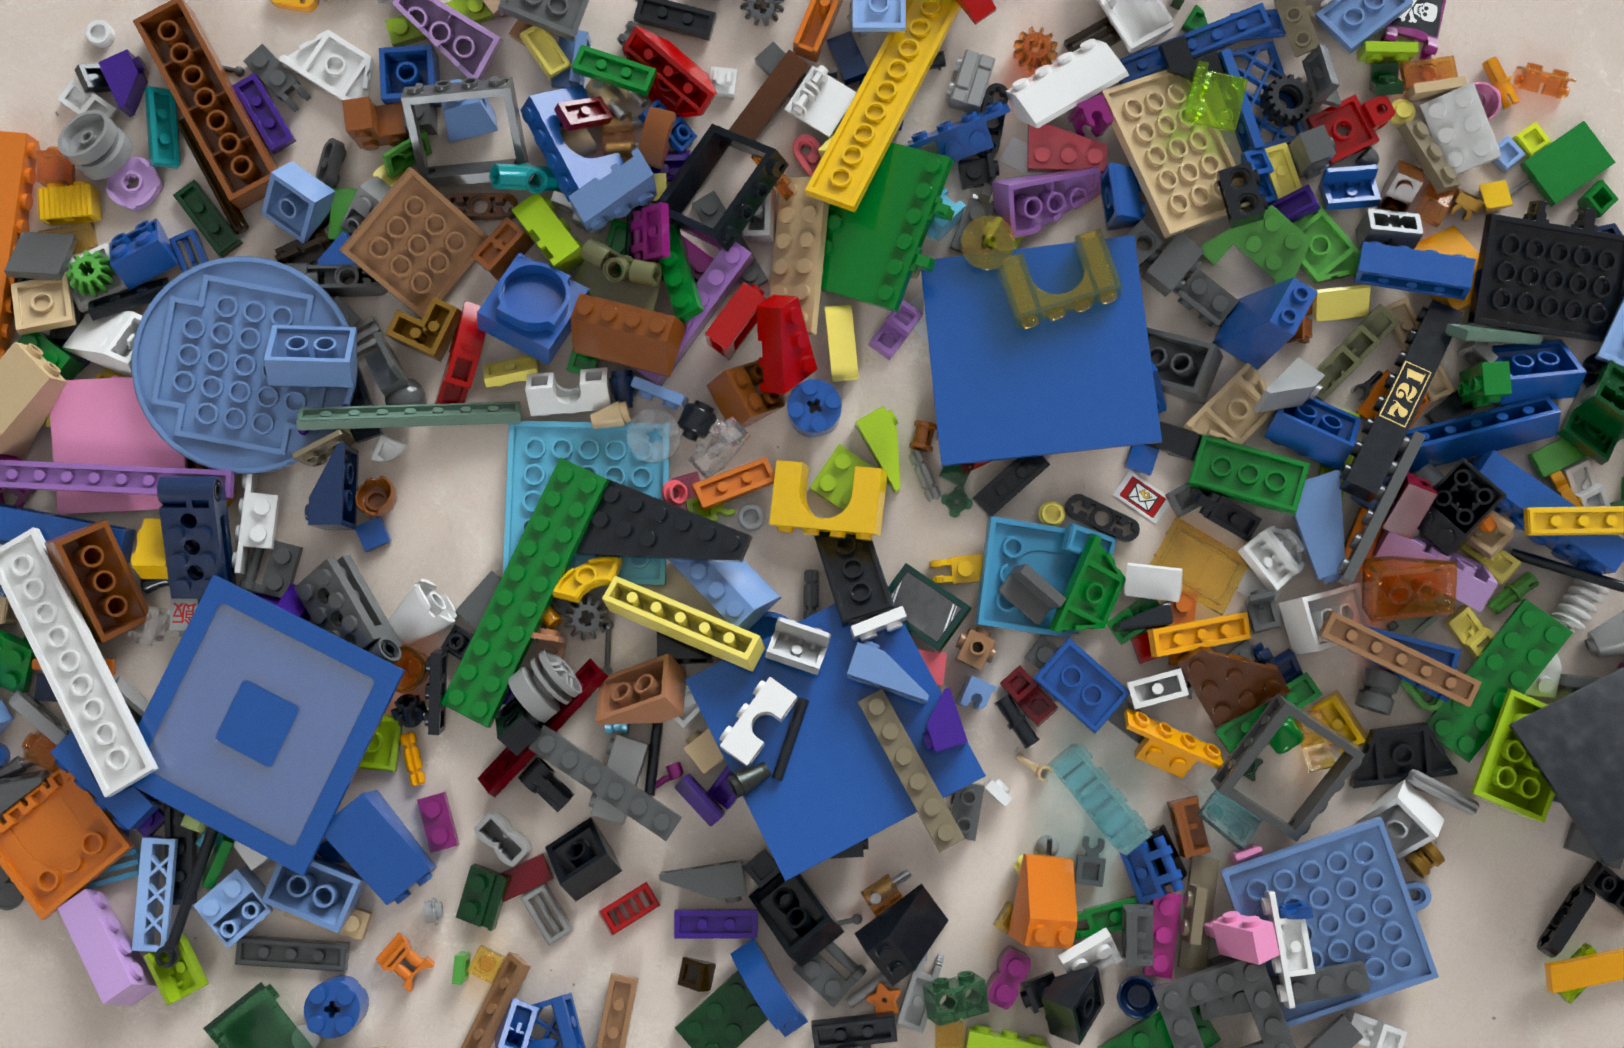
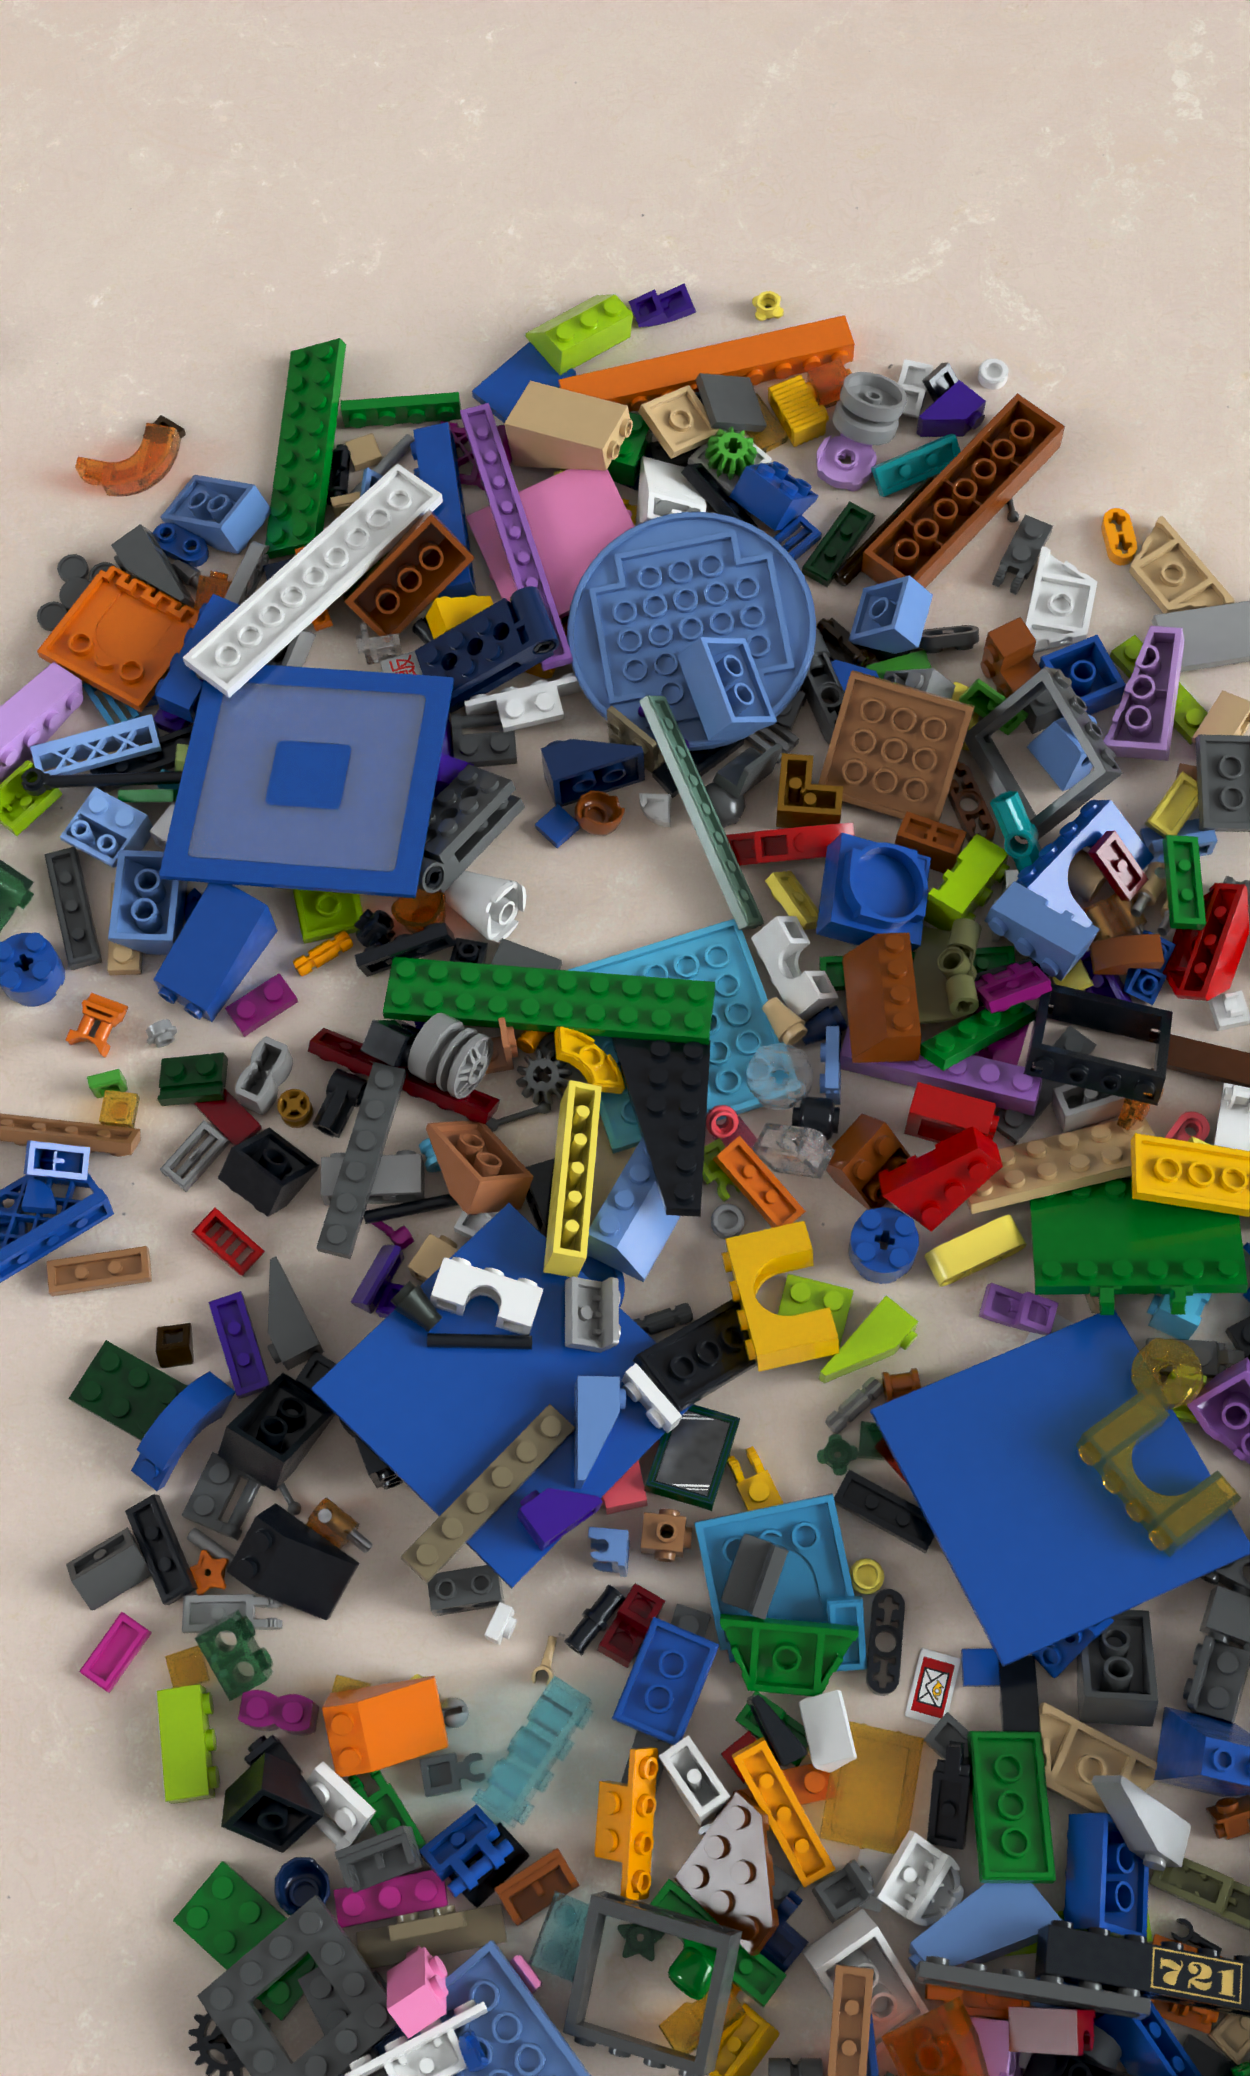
camera: 75 degrees right, 15 degrees down
(264, 113) = (976, 555): dark purple plate -> none
(533, 824) = (293, 1101): none -> pearl gold wheel

